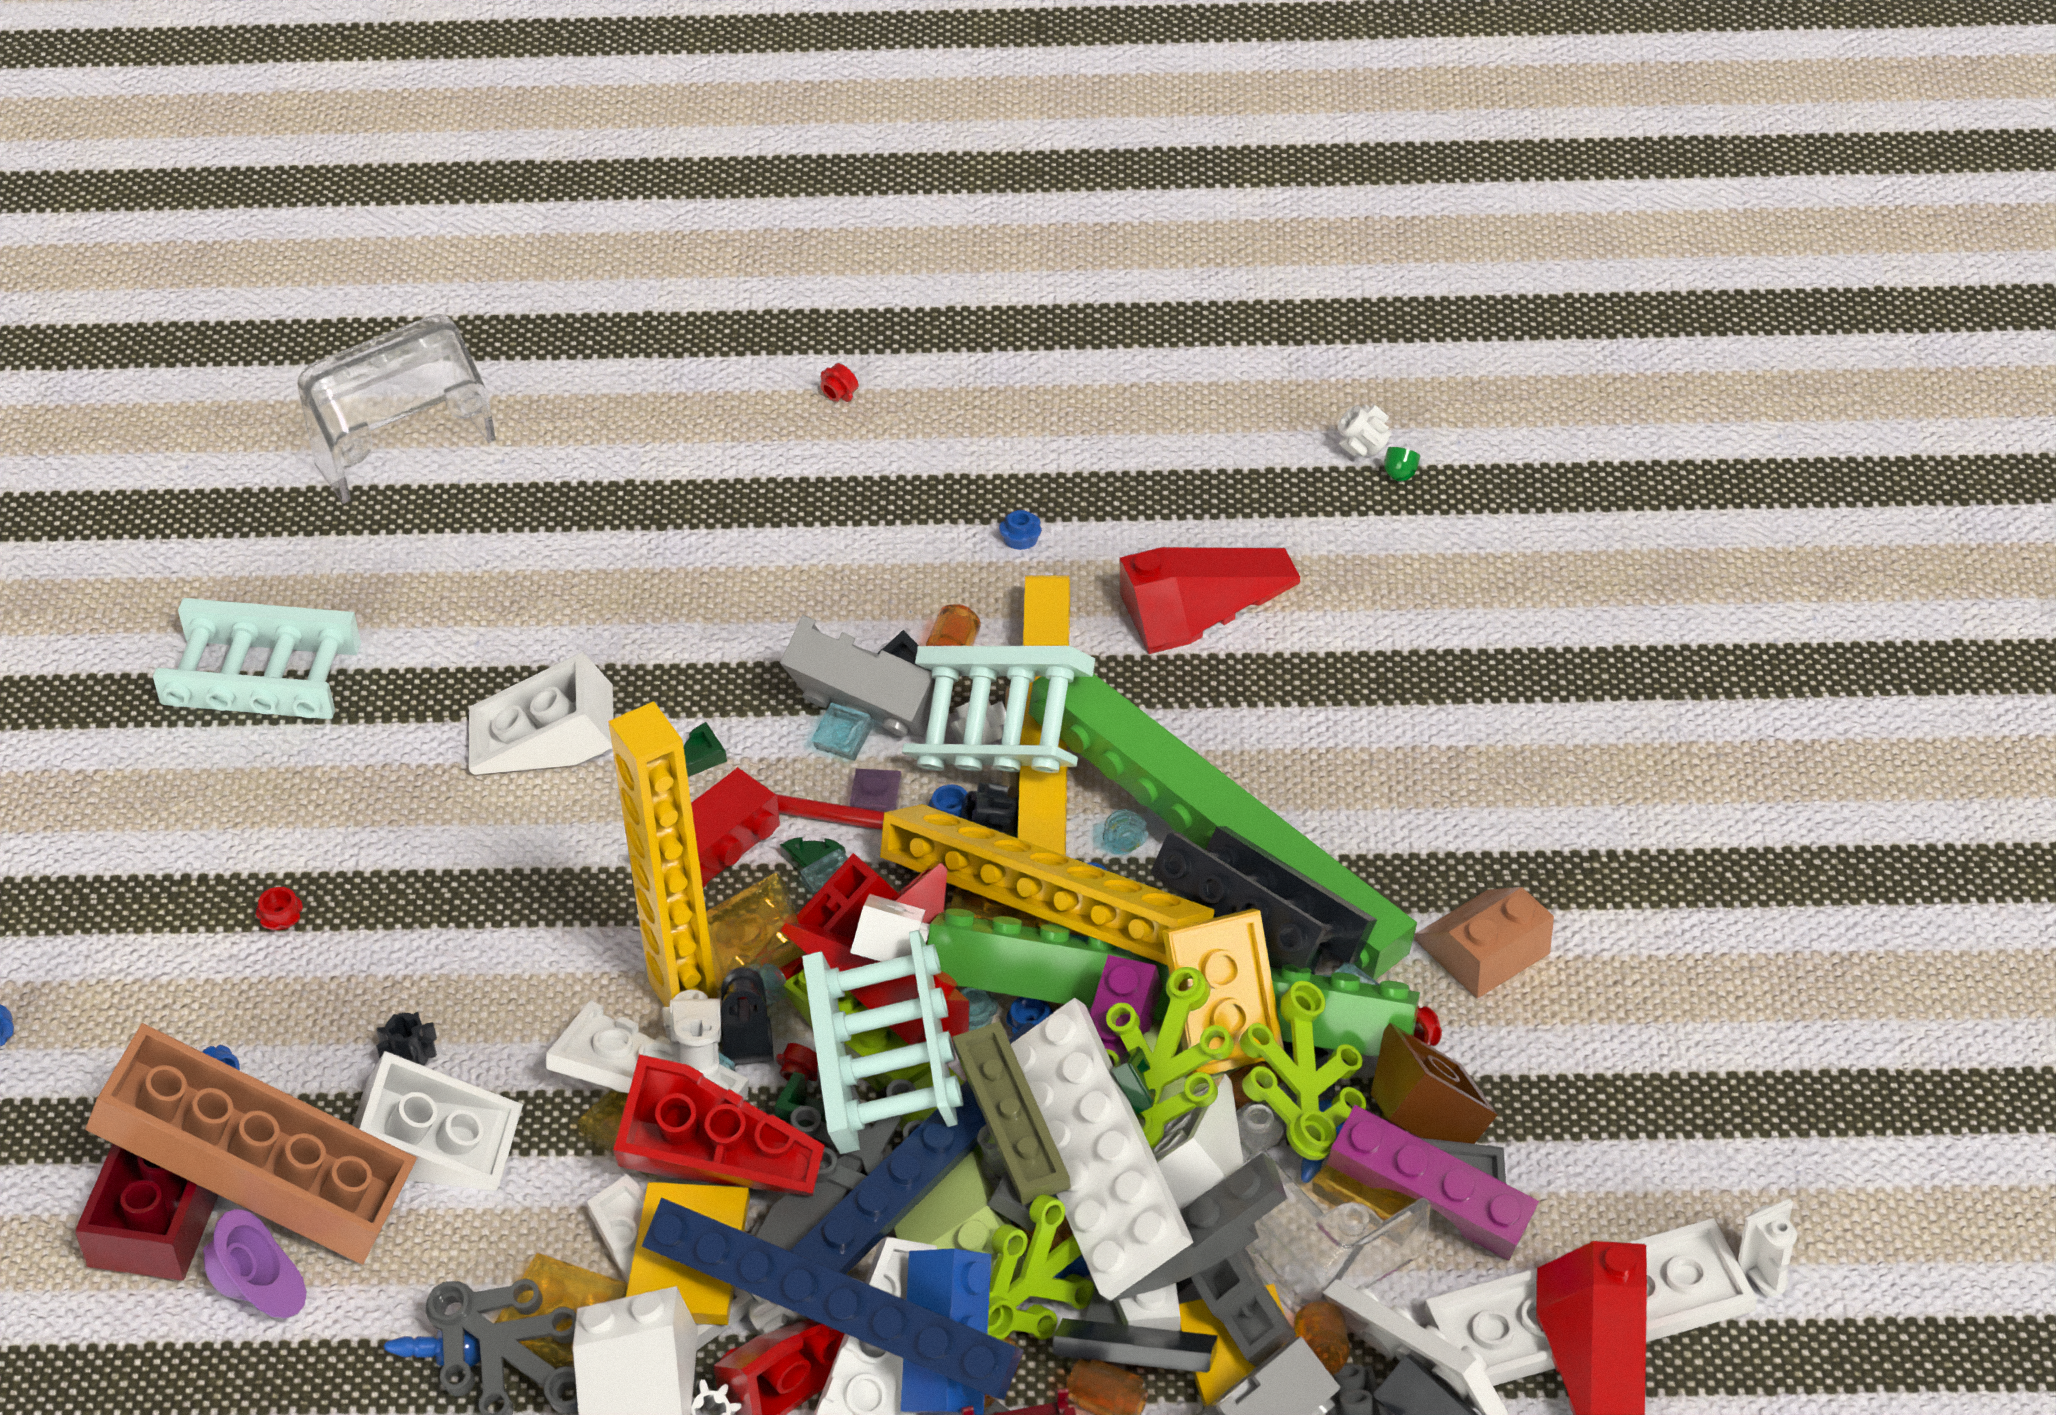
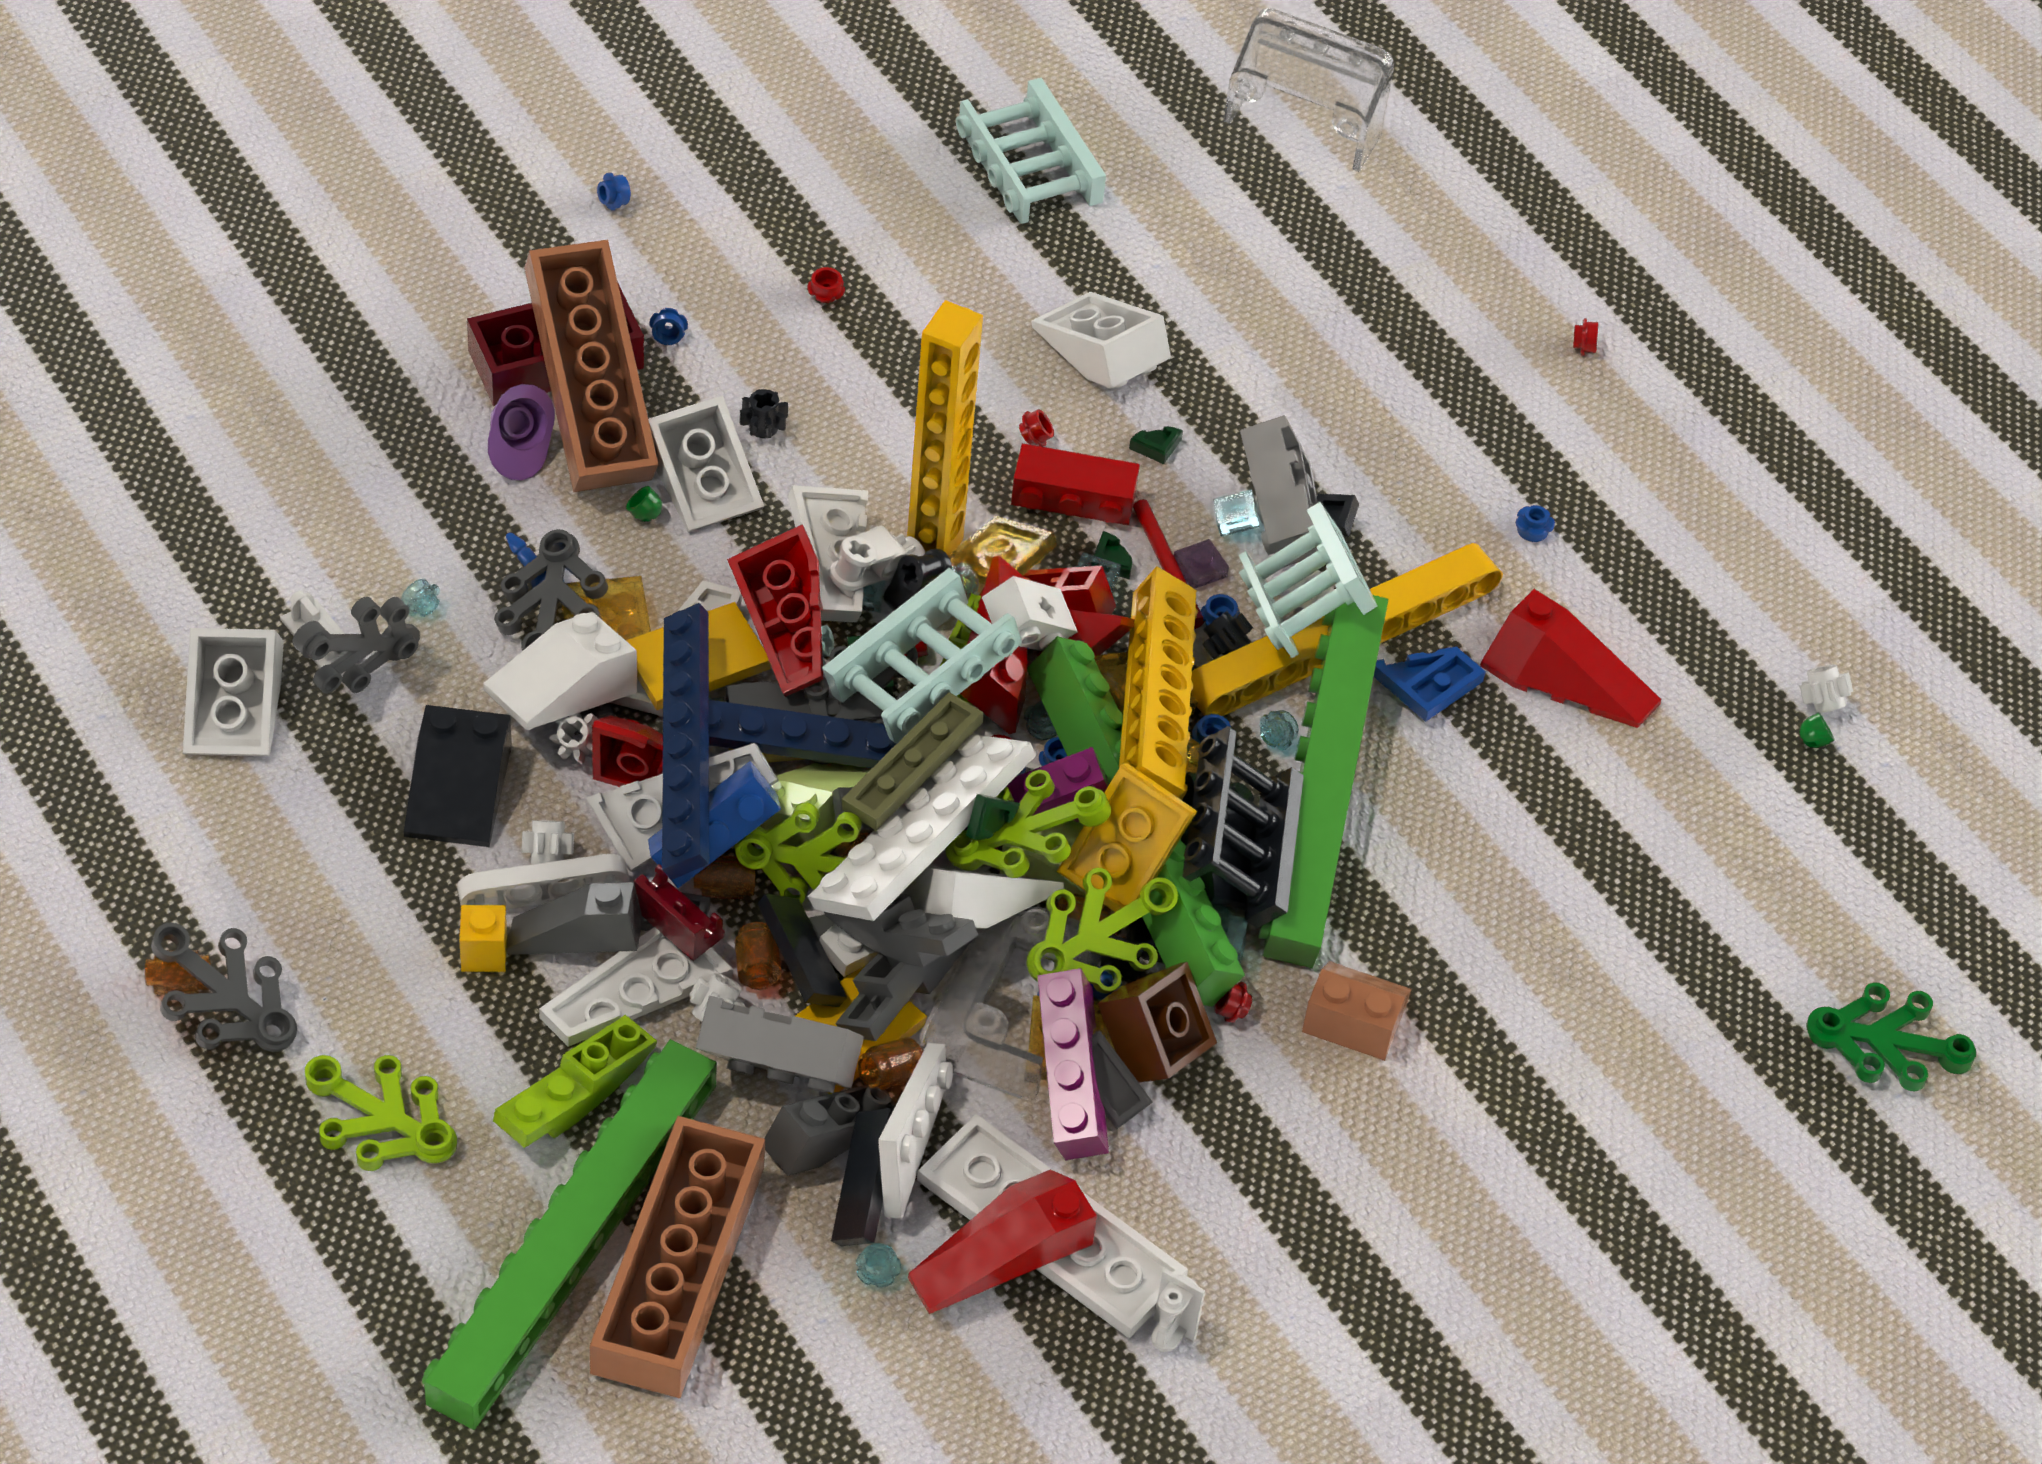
camera: 50 degrees right, 5 degrees up
(431, 1211) = (645, 504): none -> green hinge
(608, 831) = (1036, 428): none -> red plate
(954, 627) = (1384, 532): clear orange brick -> none
(1155, 685) = (1430, 680): none -> blue wing
(1724, 621) = (1886, 1039): none -> green plant

